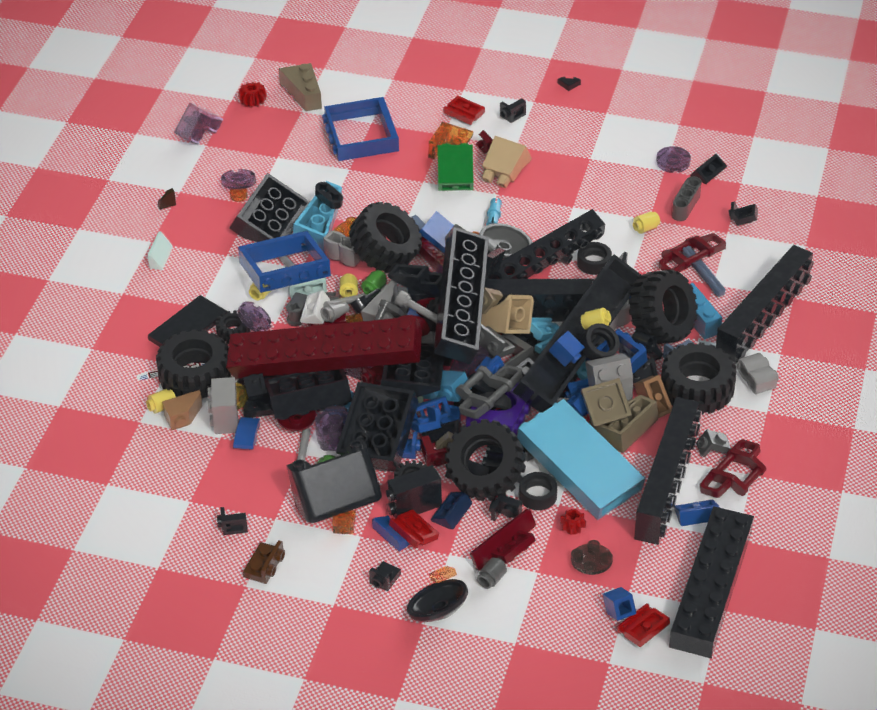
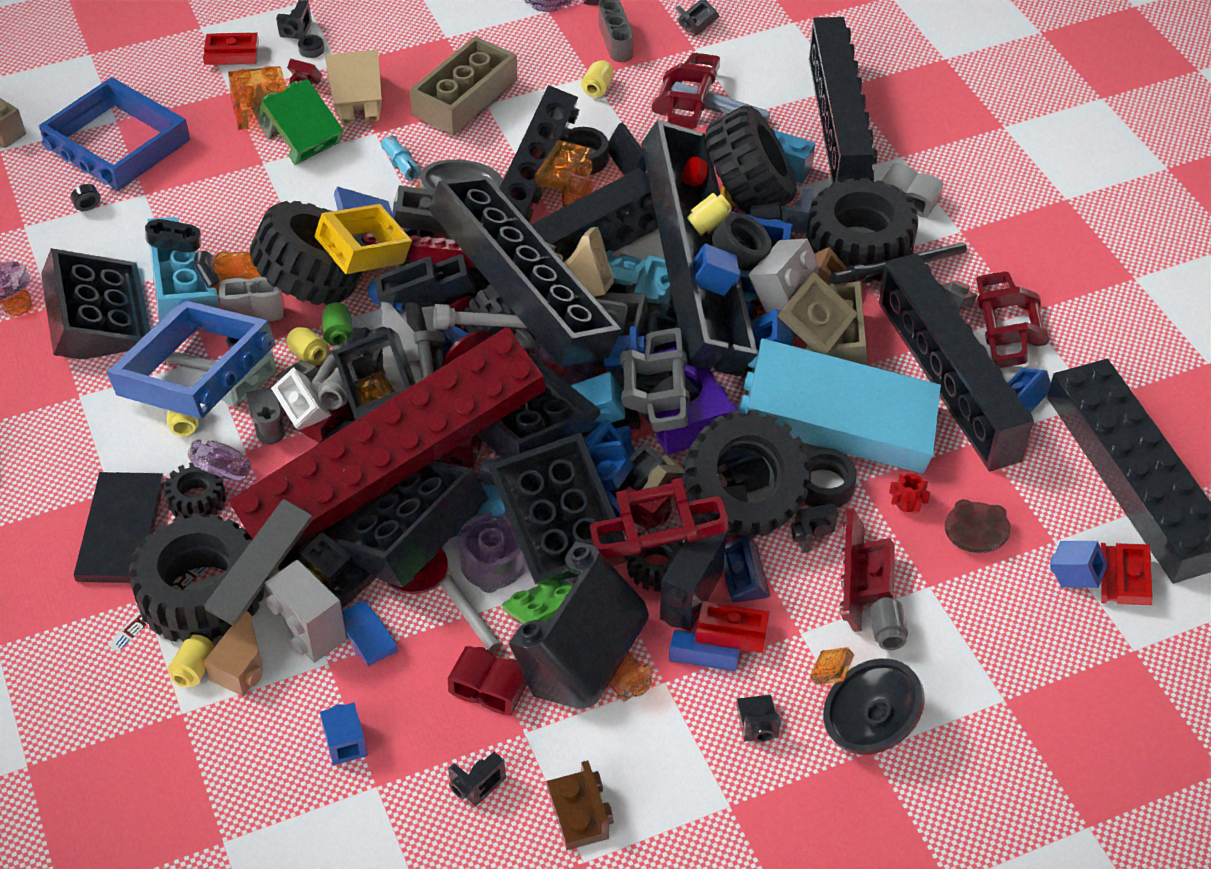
camera: 40 degrees left, 5 degrees up
(194, 468) = (343, 733): none -> blue brick
(216, 368) = (258, 562): none -> dark grey tile
(276, 484) = (487, 680): none -> dark red brick
(316, 156) = (85, 197): none -> black tile
(328, 217) = (204, 264): none -> black arm
(341, 301) = (355, 349): none -> black window
(397, 448) = (685, 510): none -> dark red bar
(414, 231) = (336, 237): none -> yellow window
(509, 128) = (311, 46): none -> black tile
(561, 262) = (567, 170): none -> clear orange bracket
(564, 189) = (463, 85): none -> dark tan brick
(619, 294) = (694, 172): none -> red tile
(661, 397) = (859, 272): none -> black bar

